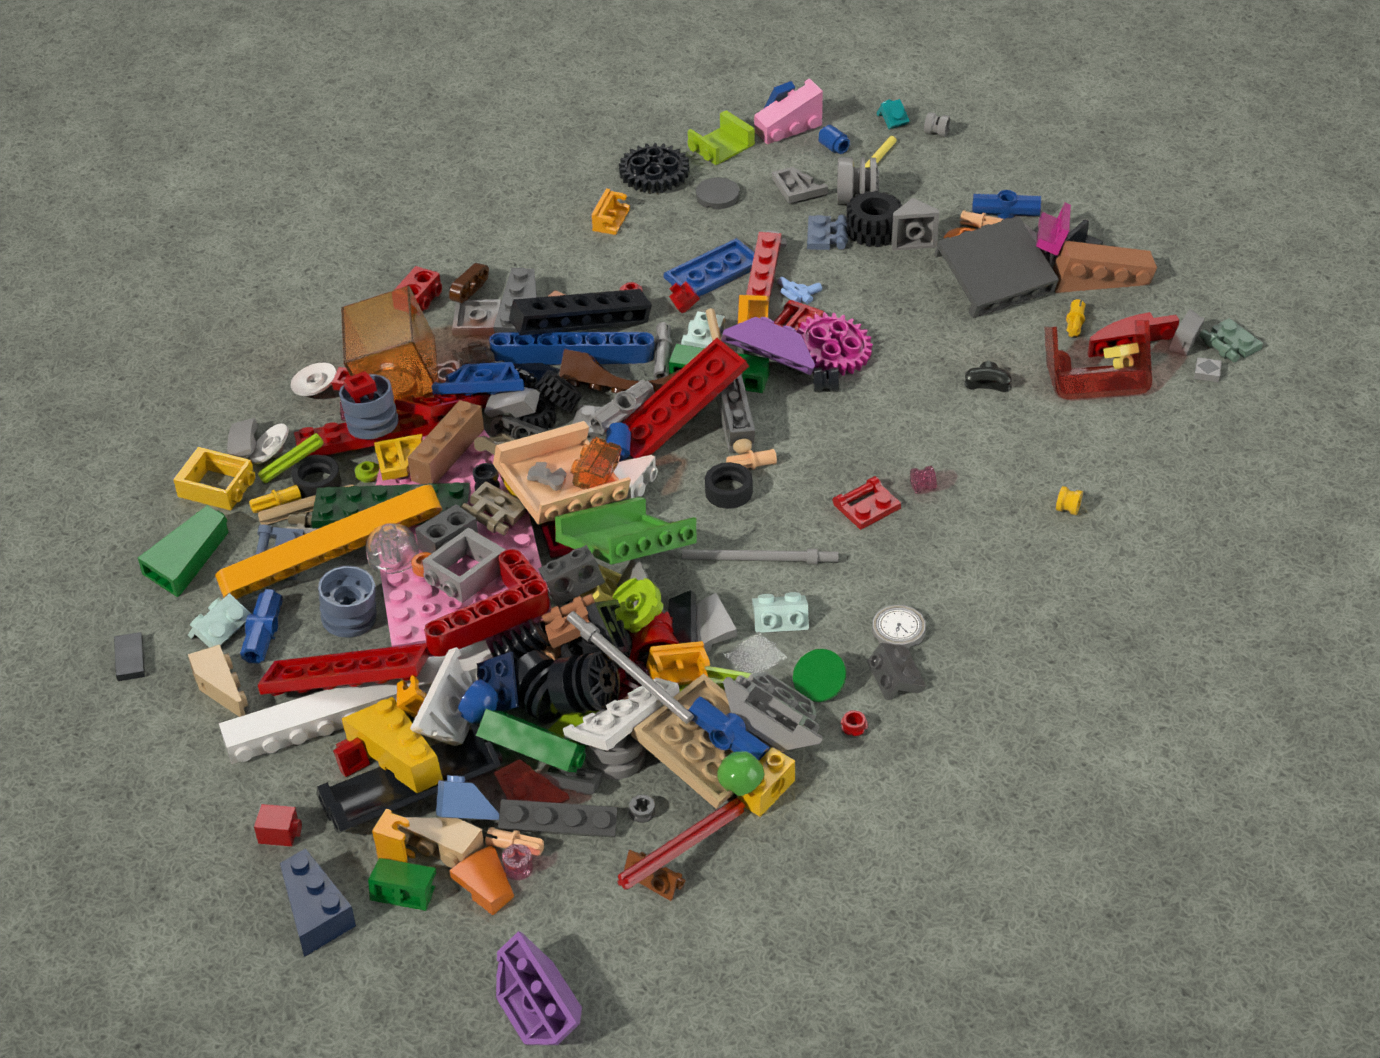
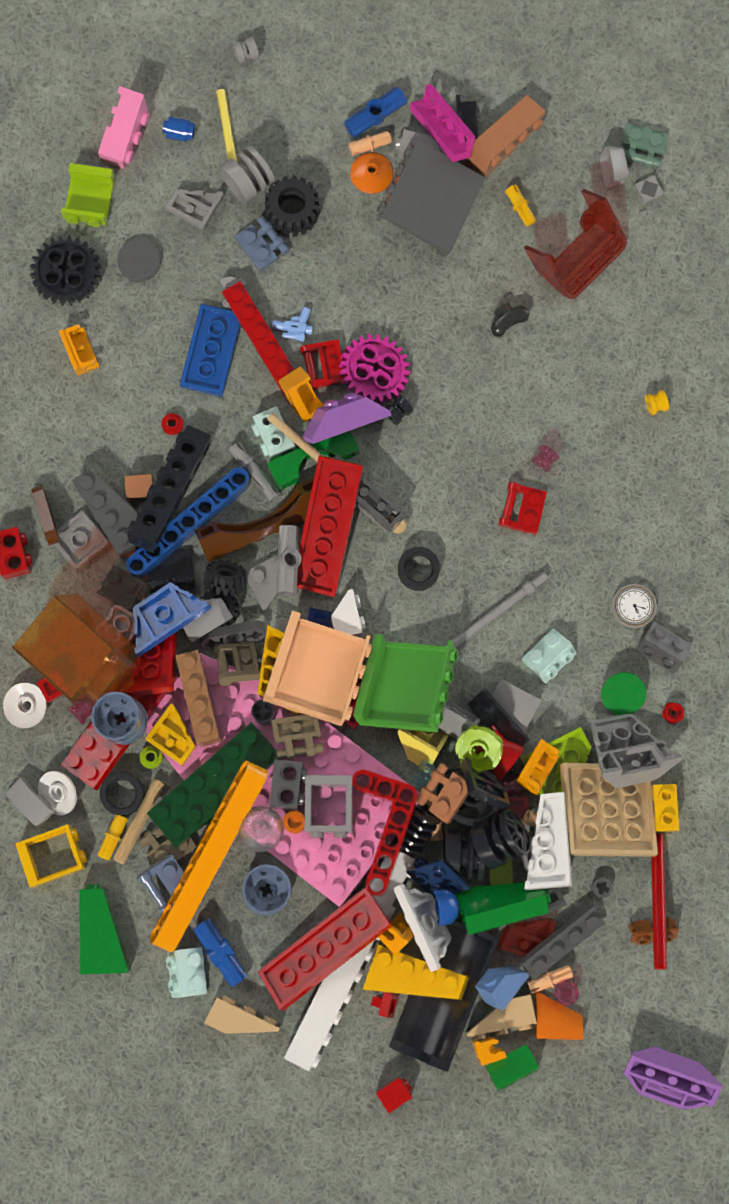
camera: 45 degrees left, 35 degrees up
(129, 656) = (152, 1048): tile -> none
(290, 458) = (93, 797): lime axle -> none
(315, 901) = (474, 1128): wedge -> none
(359, 386) = (110, 717): red tile -> none
(543, 475) = (305, 684): light grey piece -> none
(571, 575) = (413, 758): dark grey brick -> none
(592, 634) = (486, 808): light grey bar -> none
(596, 463) = (337, 644): clear orange brick -> none
(620, 434) = (313, 595): blue brick -> none
(683, 296) = (220, 401): red tile -> none
(726, 730) = (621, 800): blue piece -> none
(740, 773) = (657, 826): bright green hair -> none
(754, 459) = (412, 531): light nougat axle -> none
(780, 92) = (99, 115): blue tile -> none
(893, 113) = (199, 61): teal bracket -> none
(915, 226) = (336, 195): light grey slope -> none
(1121, 354) = (590, 229): light yellow tile -> none
(1123, 332) = (571, 197): red slope -> none

